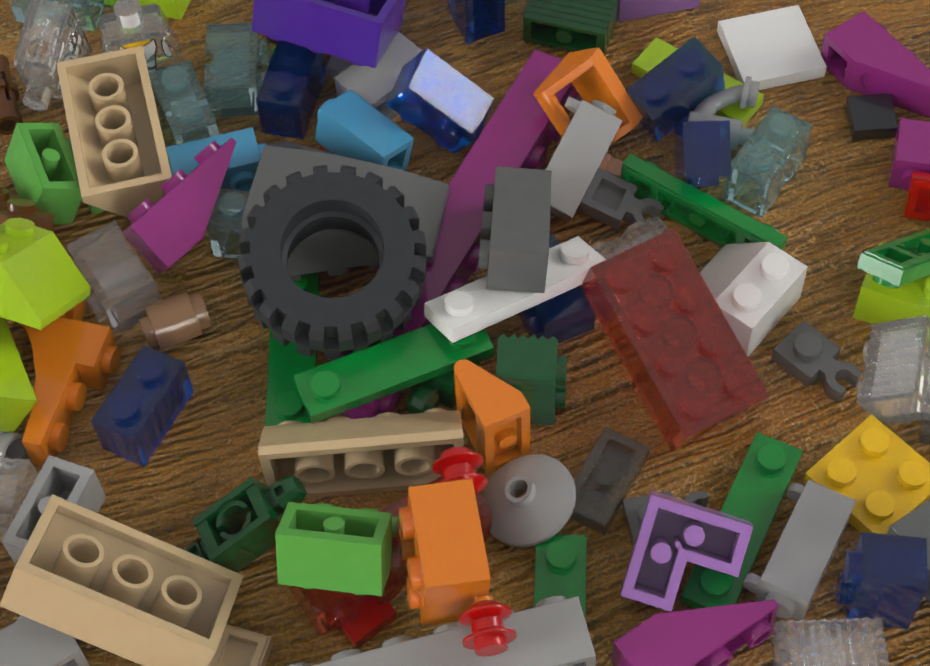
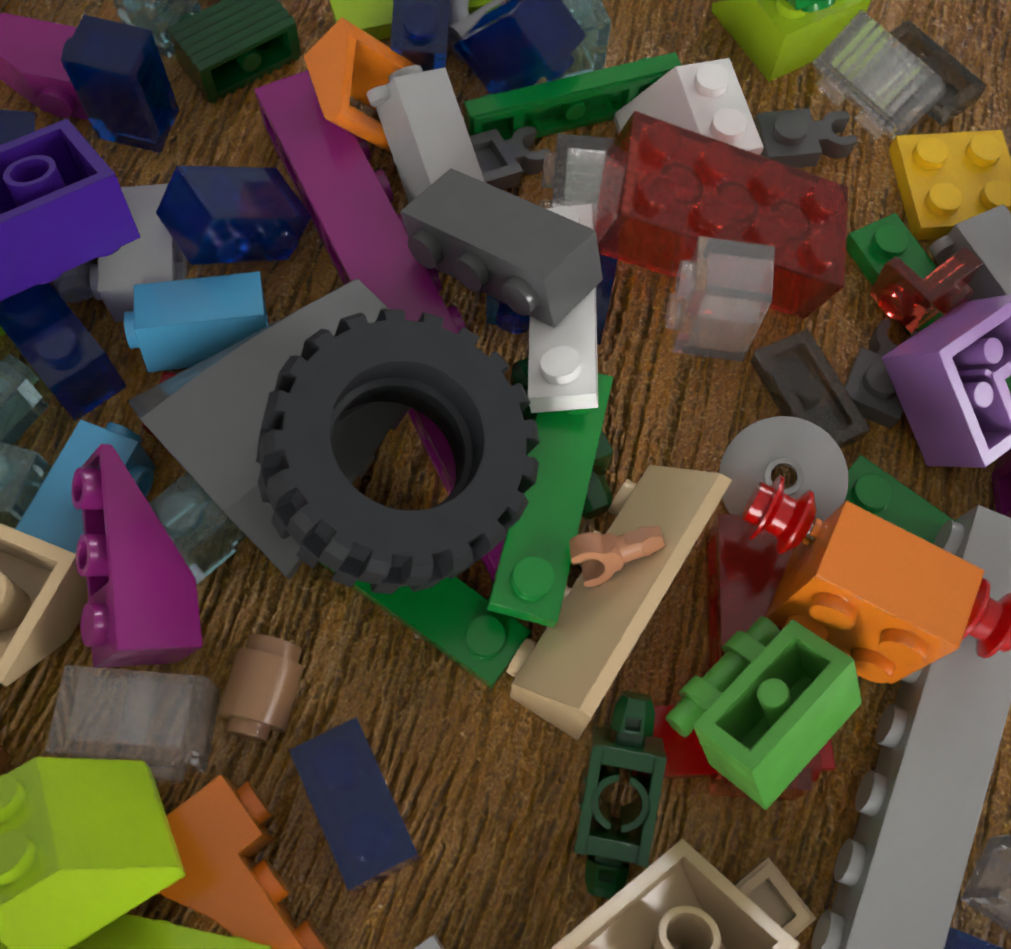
camera: 60 degrees left, 10 degrees up
(372, 411) = (612, 551): none -> nougat piece
(491, 415) = (693, 428): orange tile -> none
(536, 371) = (664, 374): dark green brick -> none
(613, 377) = (720, 298): none -> clear brick
(736, 494) = (916, 300): none -> clear red bracket

